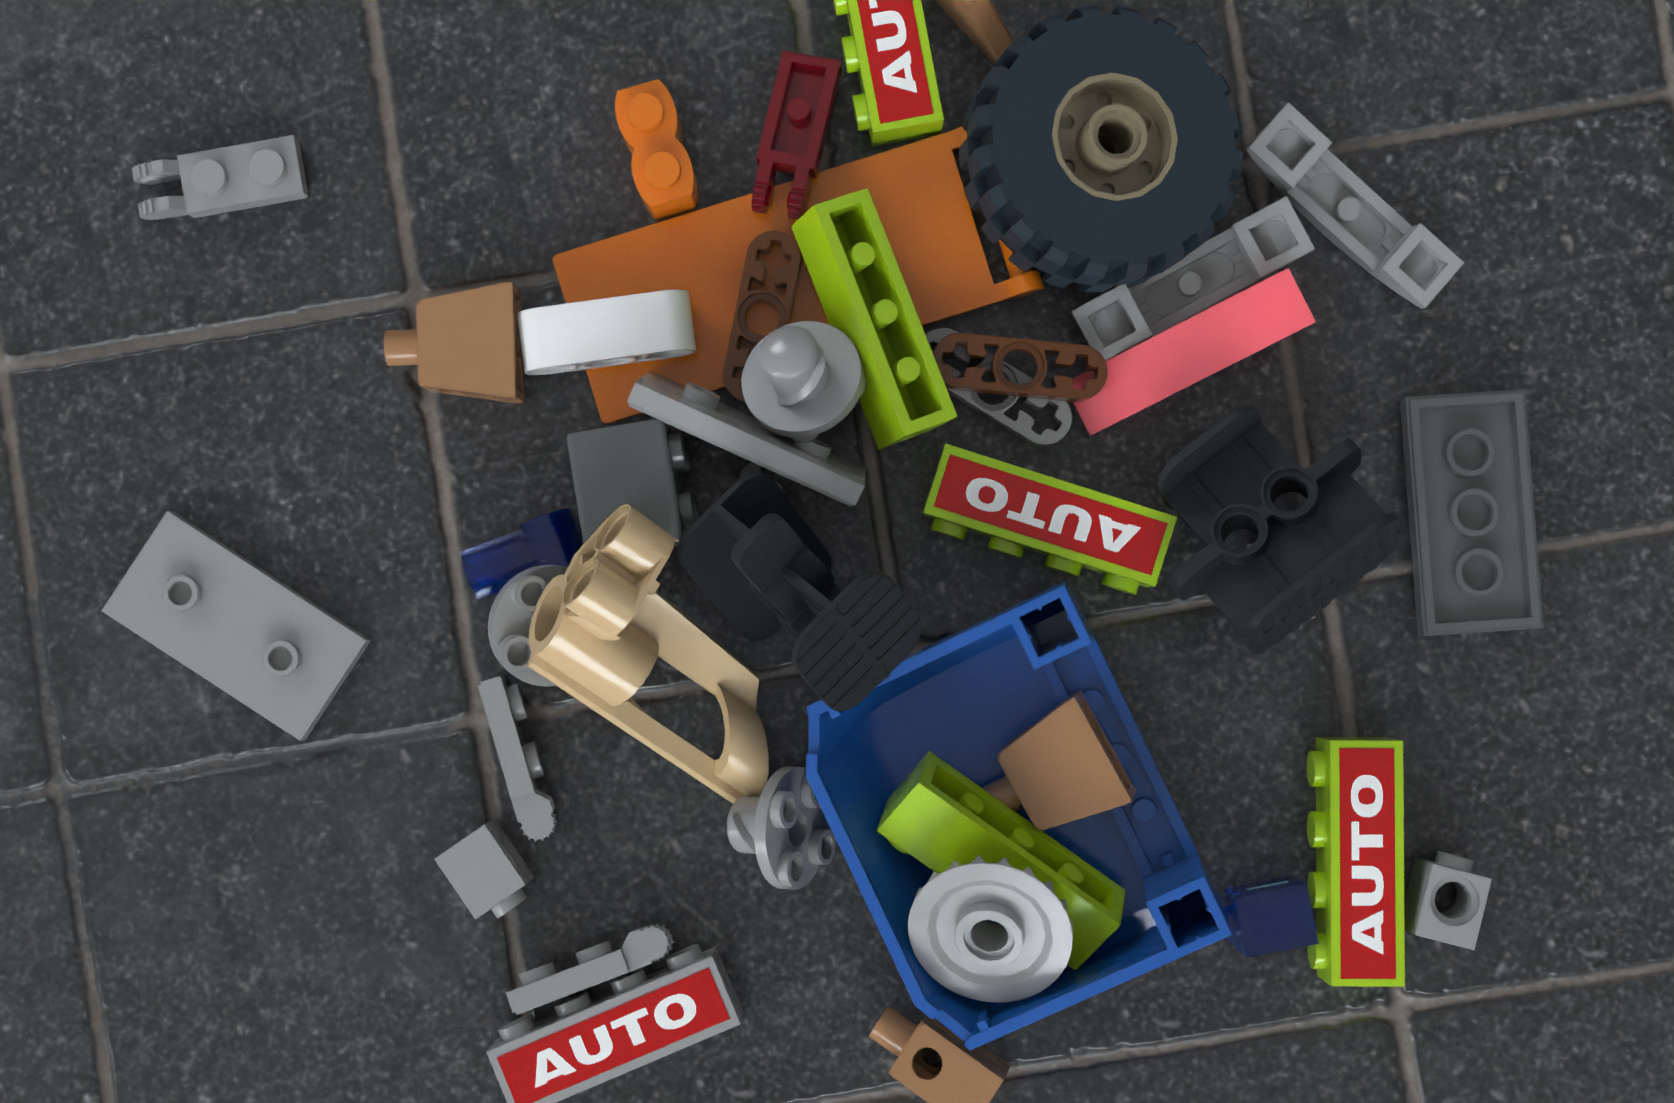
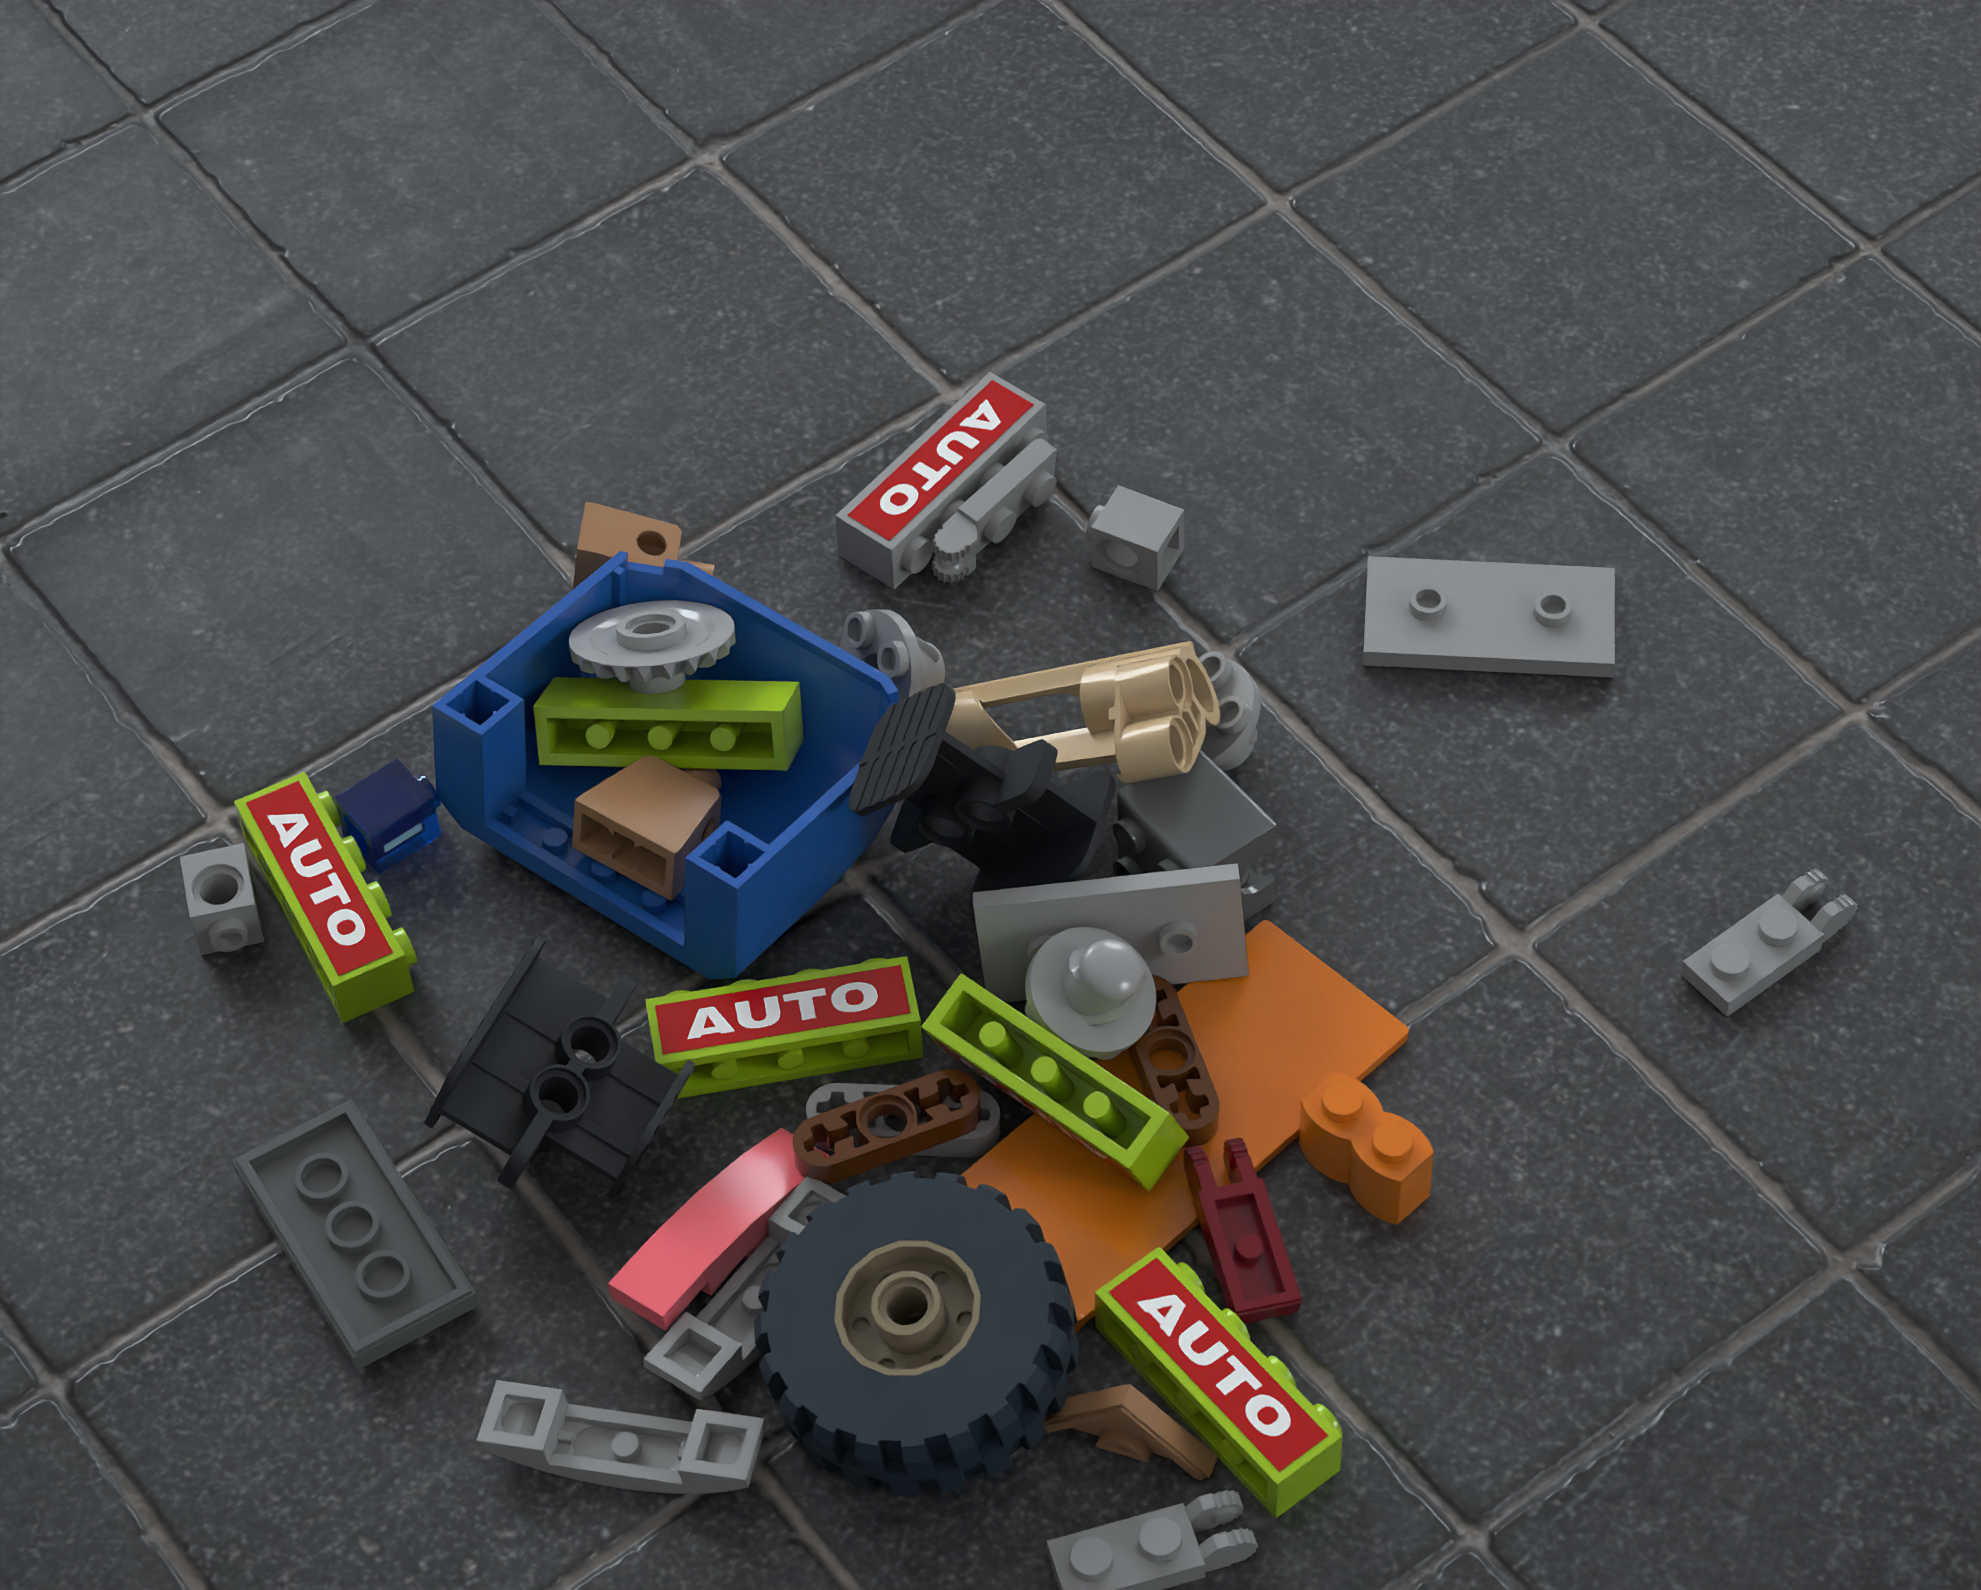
camera: 150 degrees right, 35 degrees down
(465, 344) = (1433, 908): medium nougat torso -> none
(518, 760) = (1152, 613): light grey hinge -> none
(541, 541) = (1276, 764): clear blue piece -> none
(606, 332) = (1308, 973): white beam -> none

